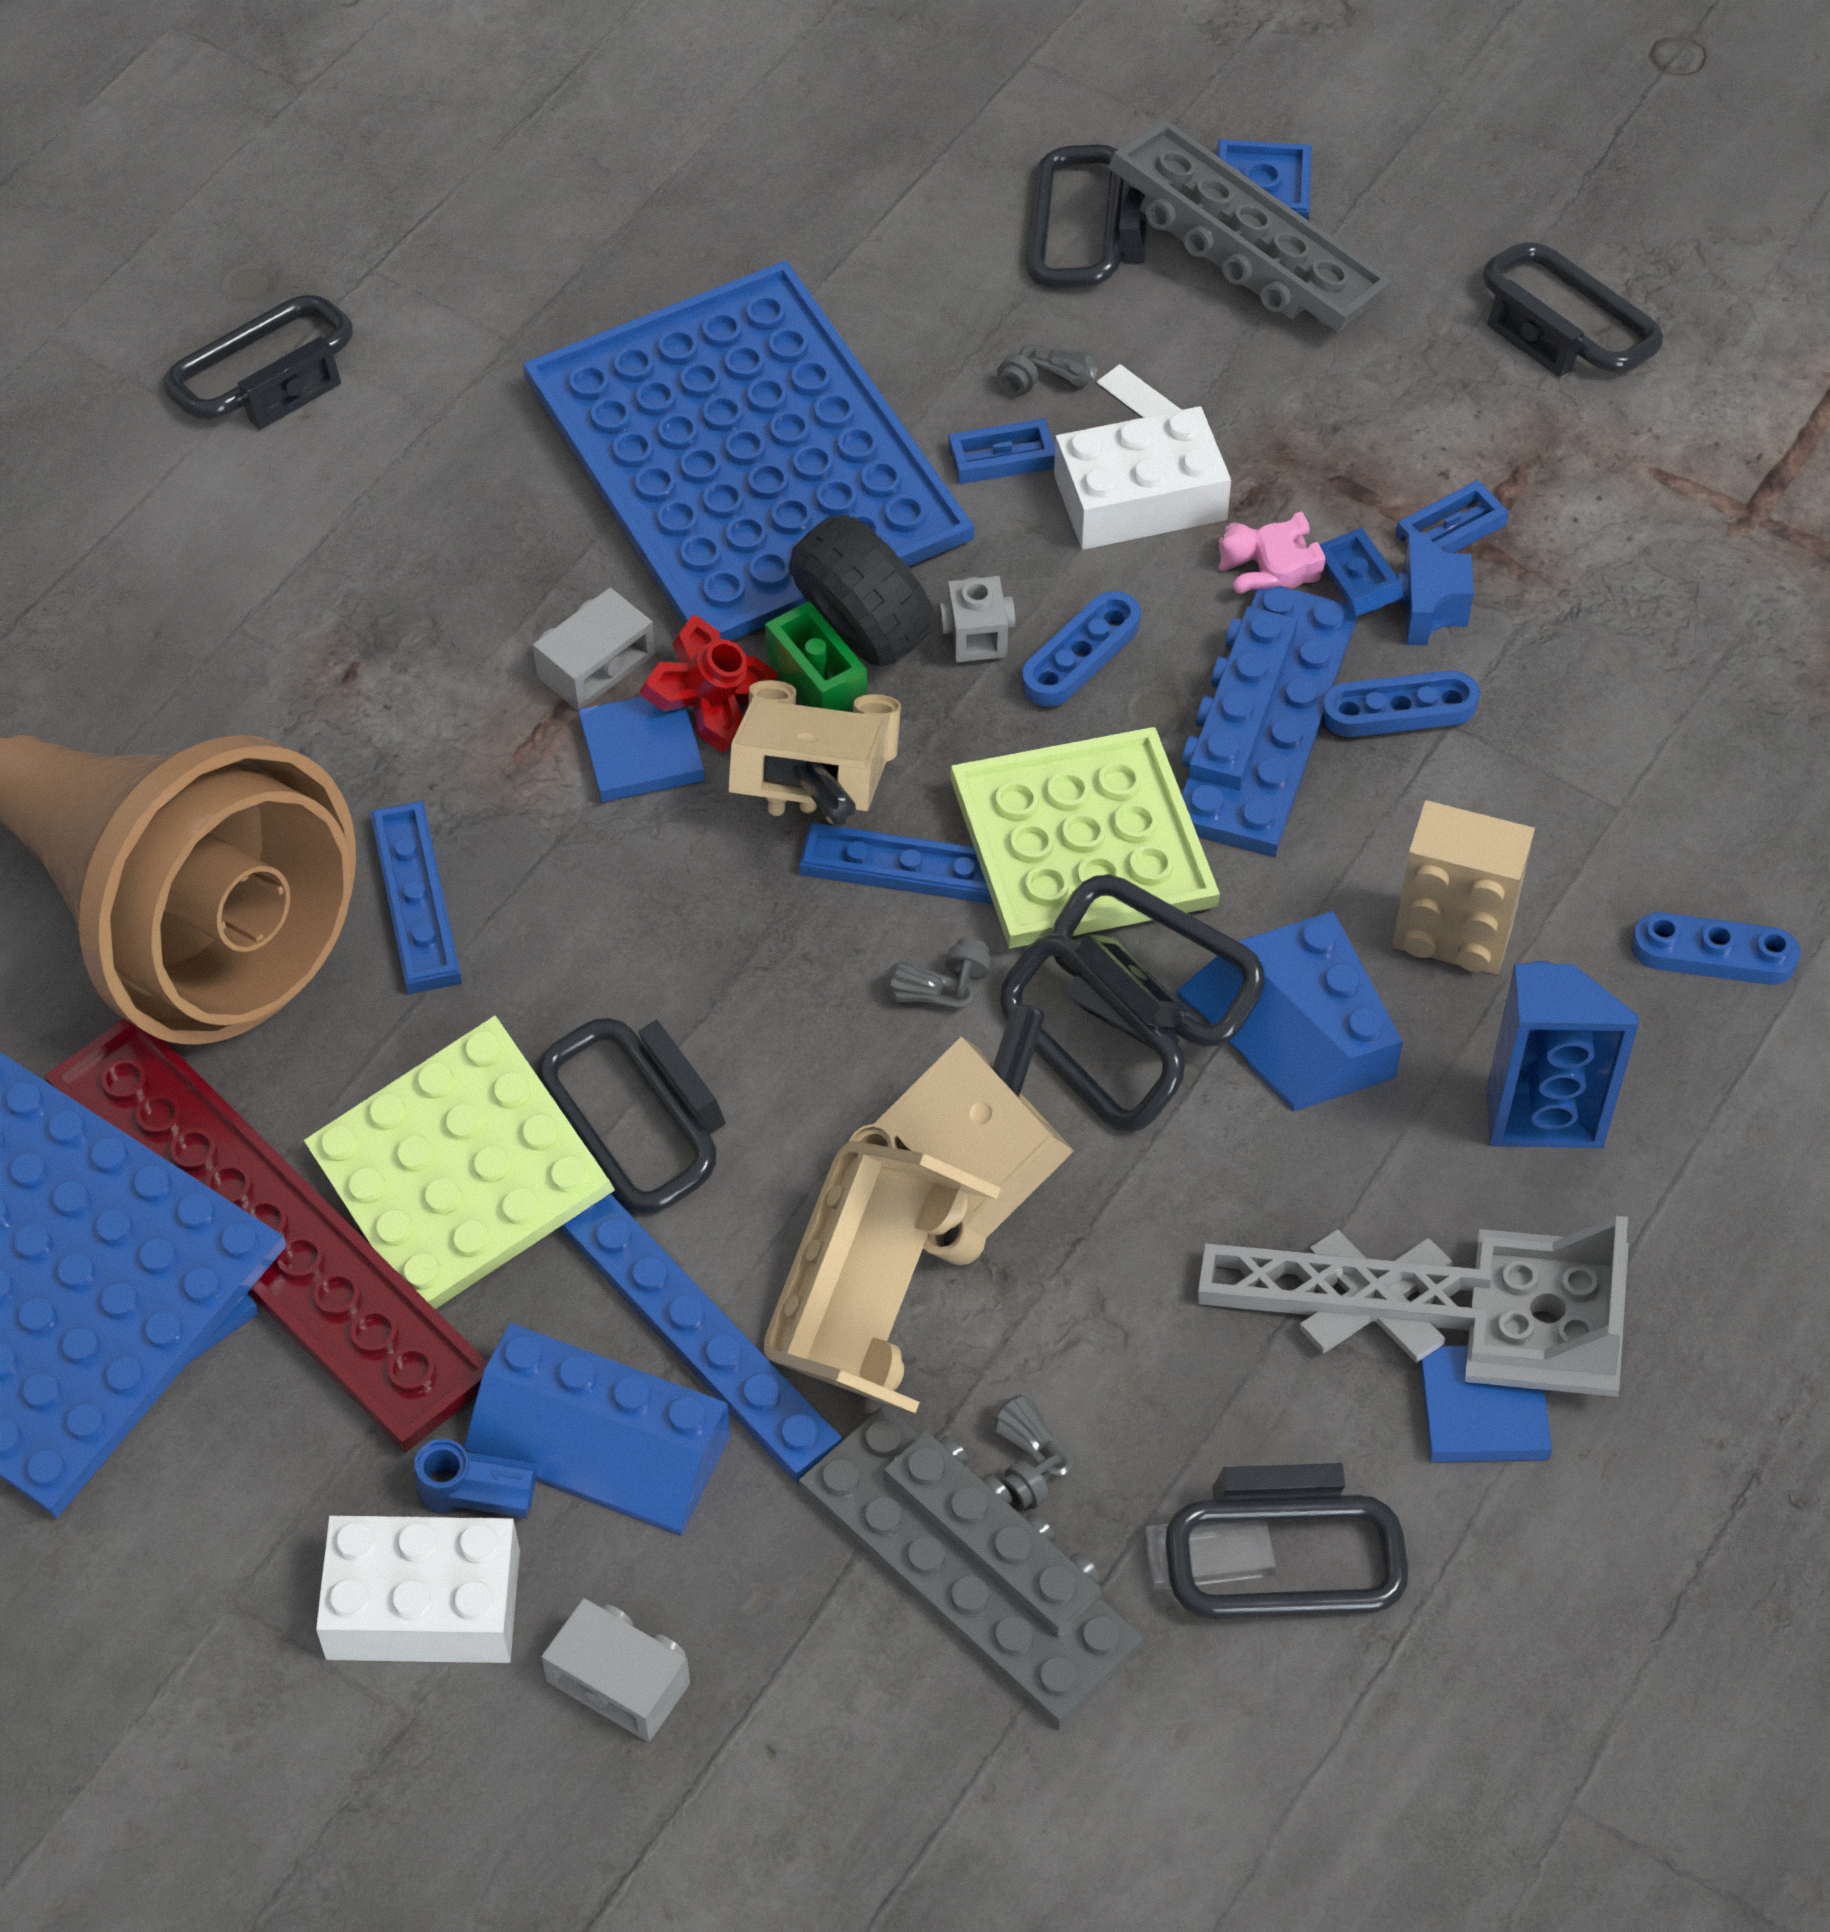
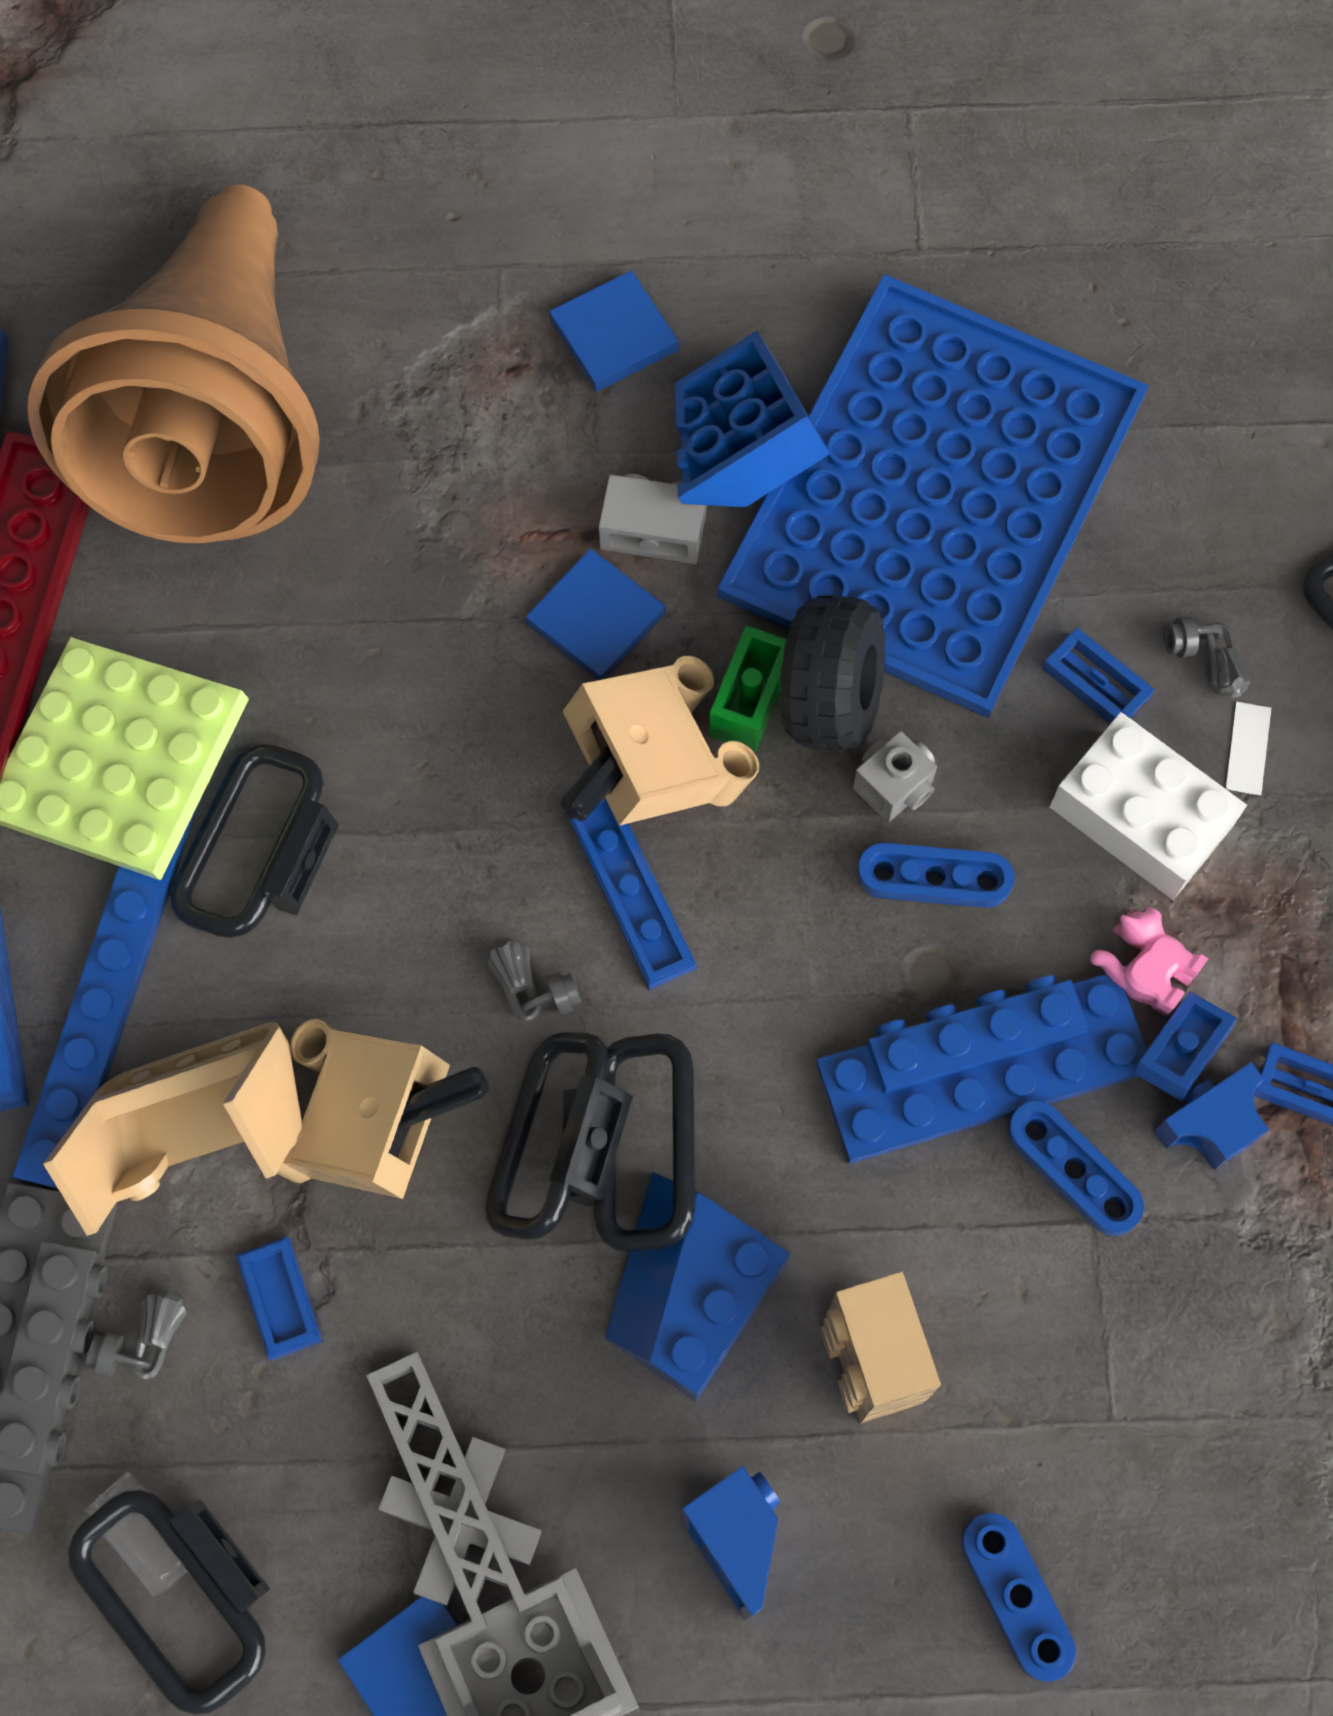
camera: 55 degrees right, 15 degrees up
(277, 387) = (744, 131): black bar -> none
(384, 581) = (614, 330): none -> blue tile
(415, 897) = (343, 558): blue tile -> none
(577, 522) = (741, 428): none -> blue wedge
(710, 677) = (695, 602): red plant -> none
(1074, 1328) = (279, 1298): none -> blue tile
(1079, 813) = (750, 995): yellowish green plate -> none

